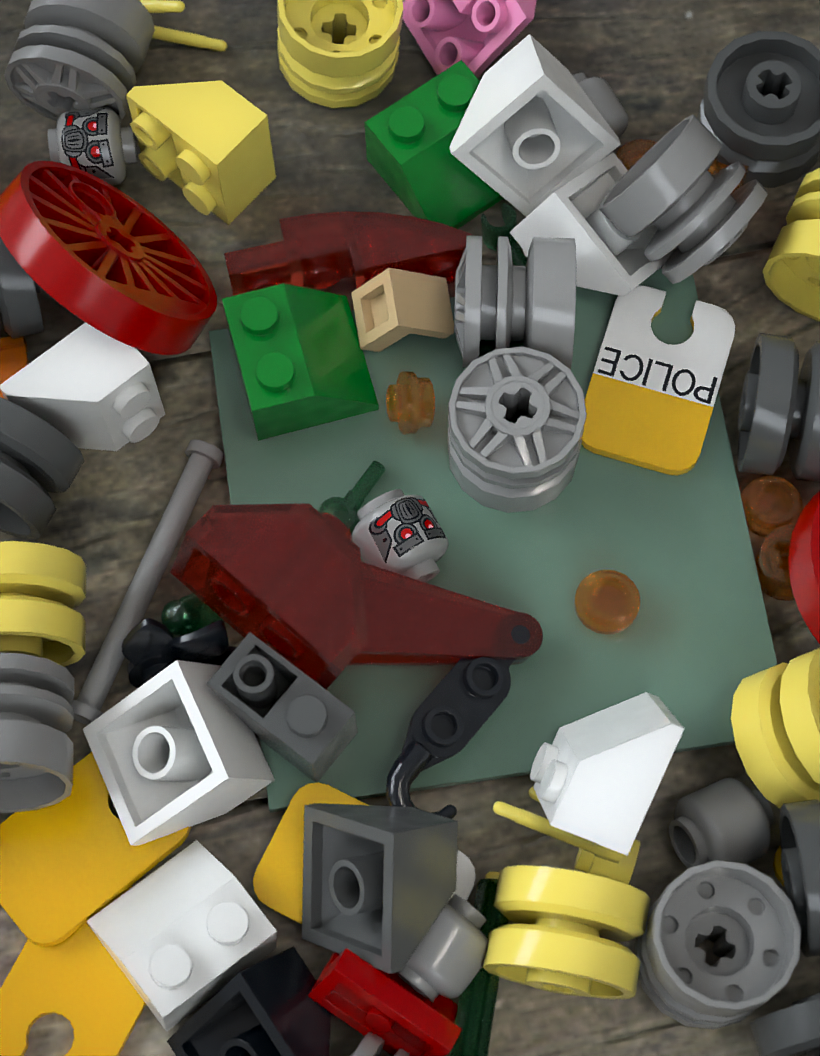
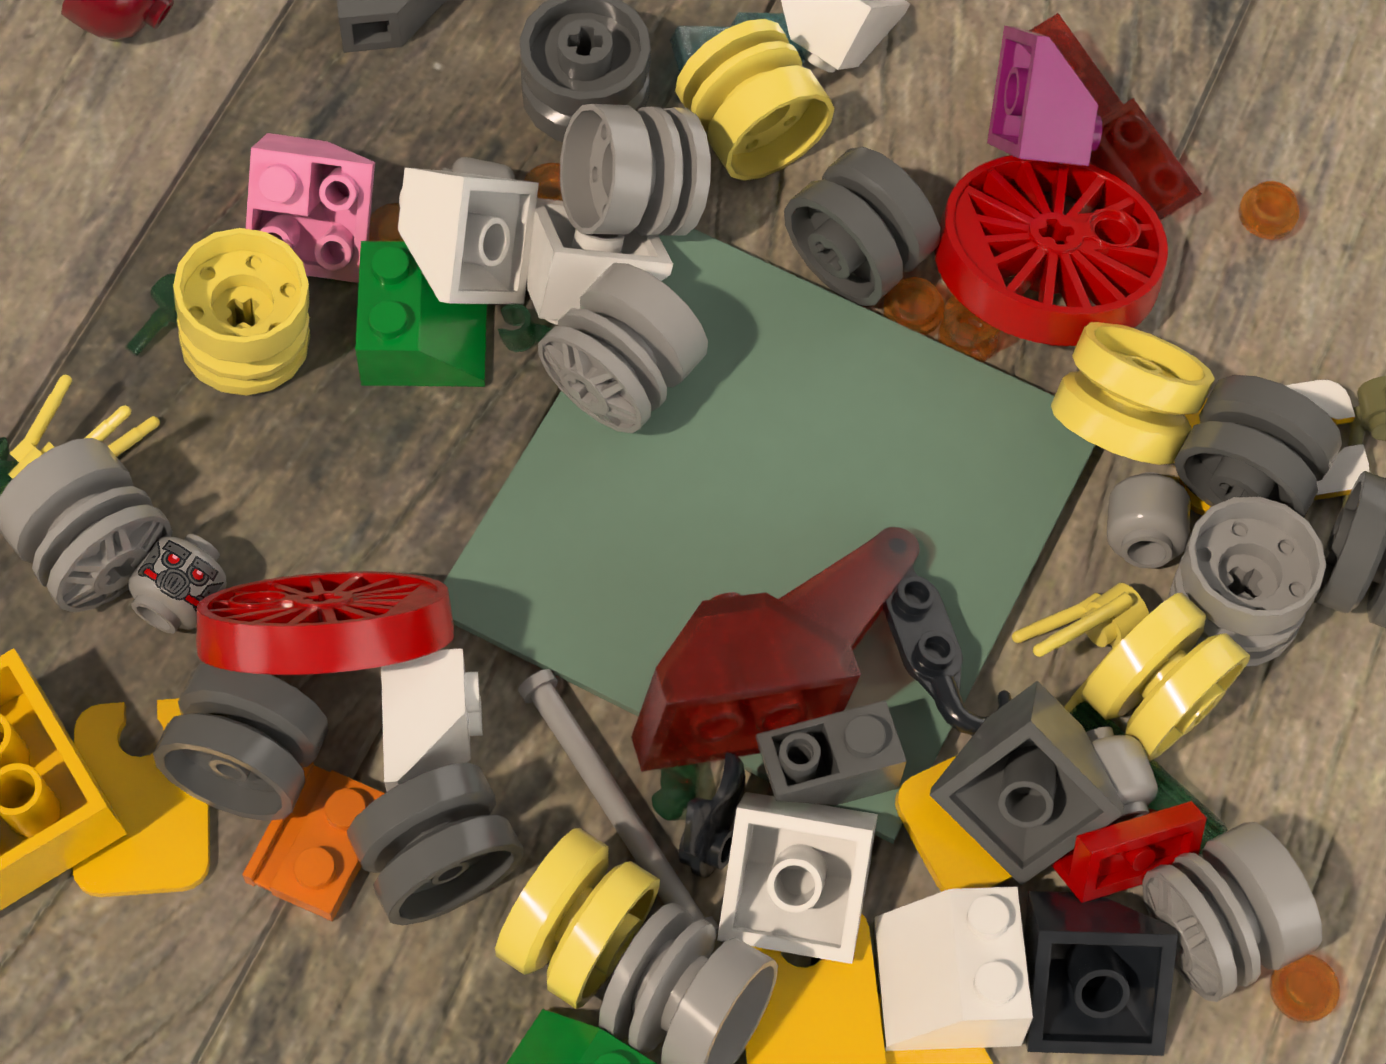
camera: 60 degrees left, 5 degrees down
(204, 142) = (260, 487): light yellow slope -> none
(298, 358) = (521, 554): green slope -> none
(347, 244) = (455, 438): clear red slope -> none
(354, 497) = (676, 591): clear green hand -> none
(399, 305) = (541, 444): tan panel -> none
(400, 535) = (750, 566): head -> none
(411, 402) = (633, 490): clear orange plate -> none
(523, 461) = (728, 426): light grey wheel -> none
(606, 770) = (1062, 551): white slope -> none
(607, 601) = (911, 469): clear orange plate -> none
(652, 397) = (761, 319): piece -> none

